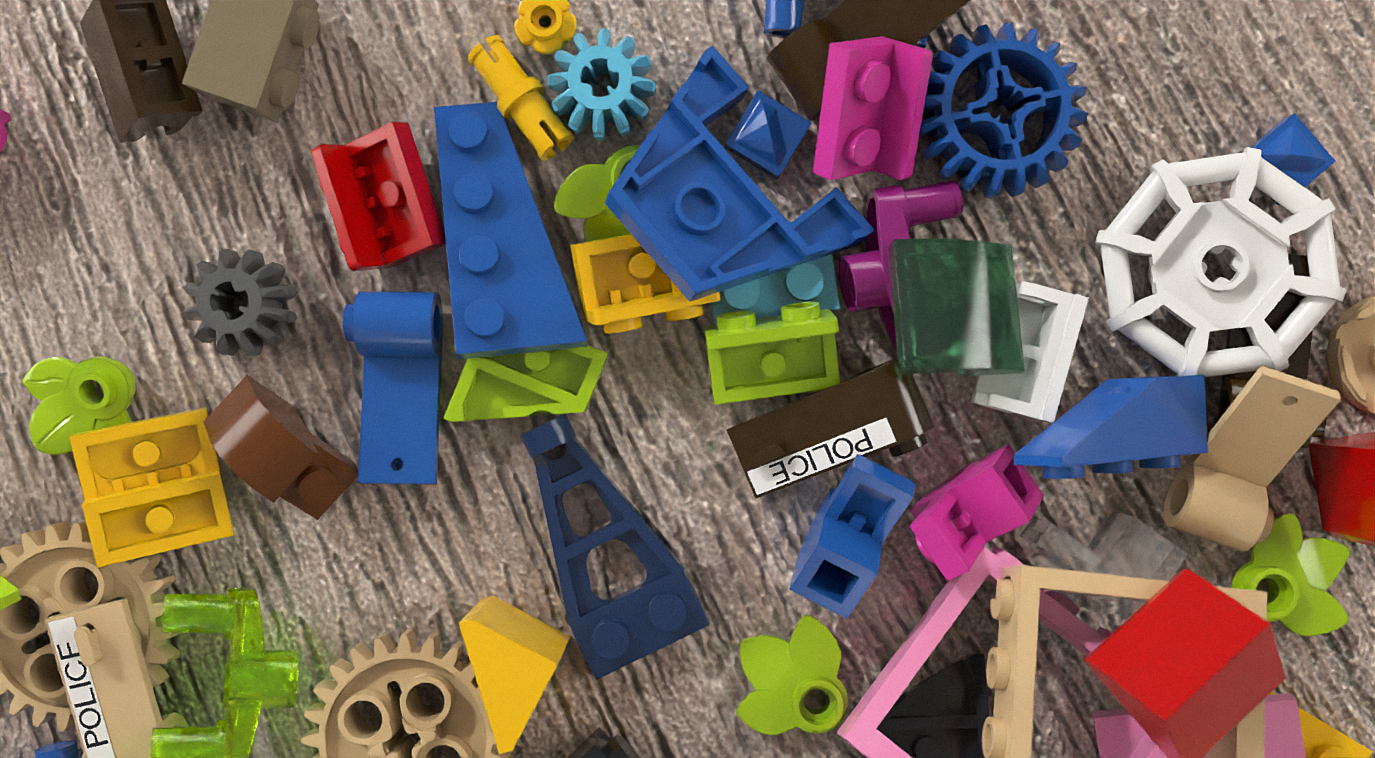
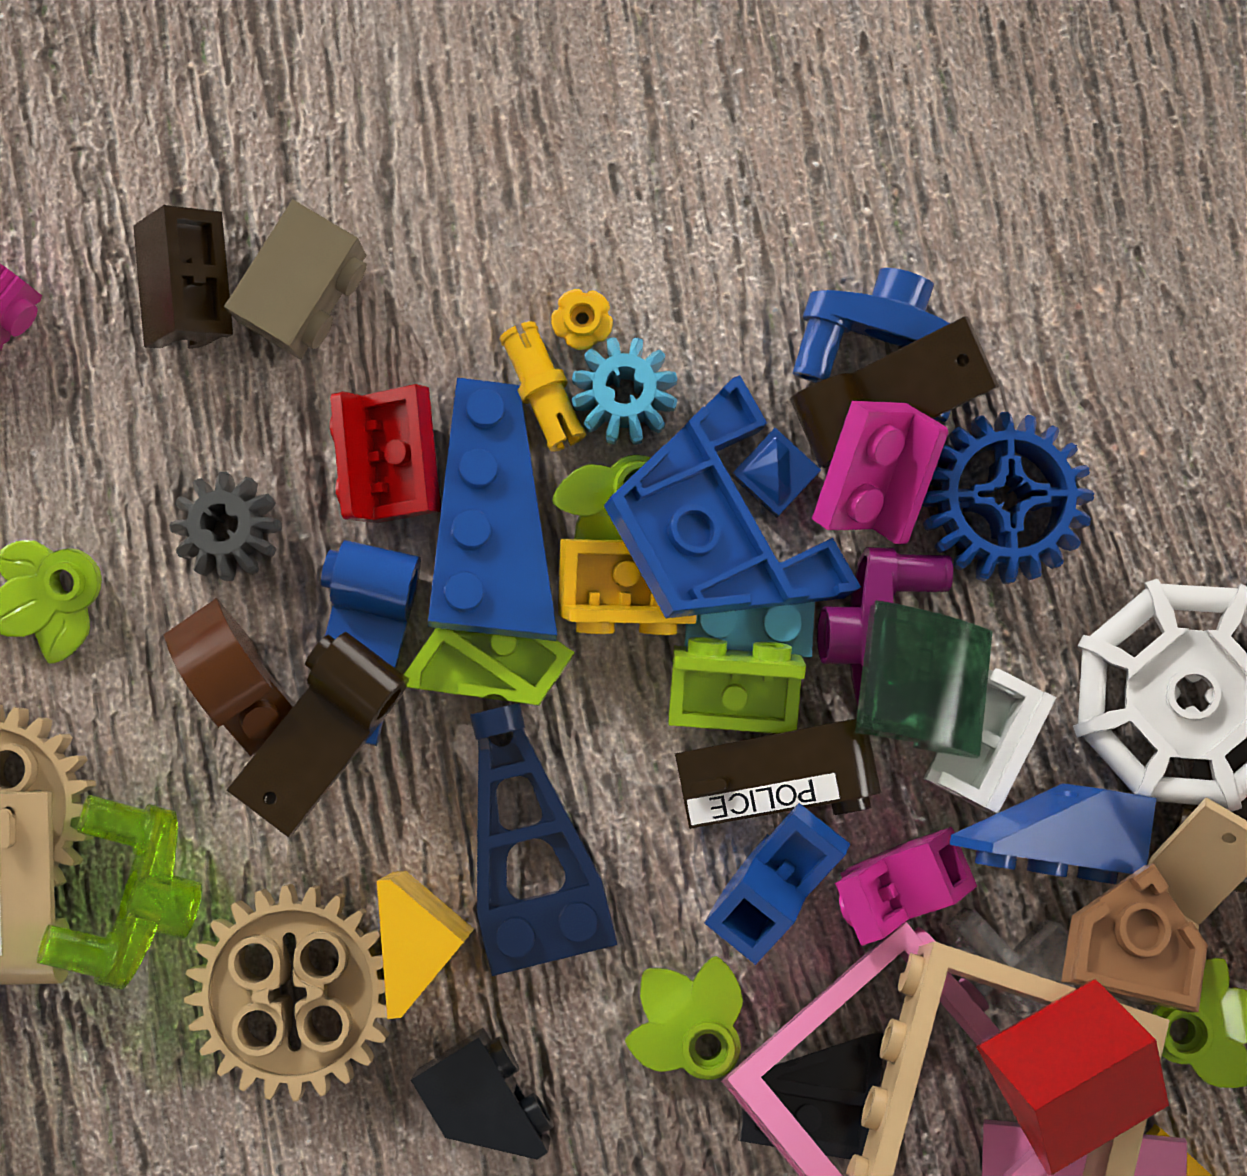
camera: 10 degrees right, 5 degrees down
(151, 486) = (98, 687): yellow slope -> none
(378, 486) = (322, 732): none -> dark brown door
(1217, 522) = (1138, 945): none -> medium nougat plate

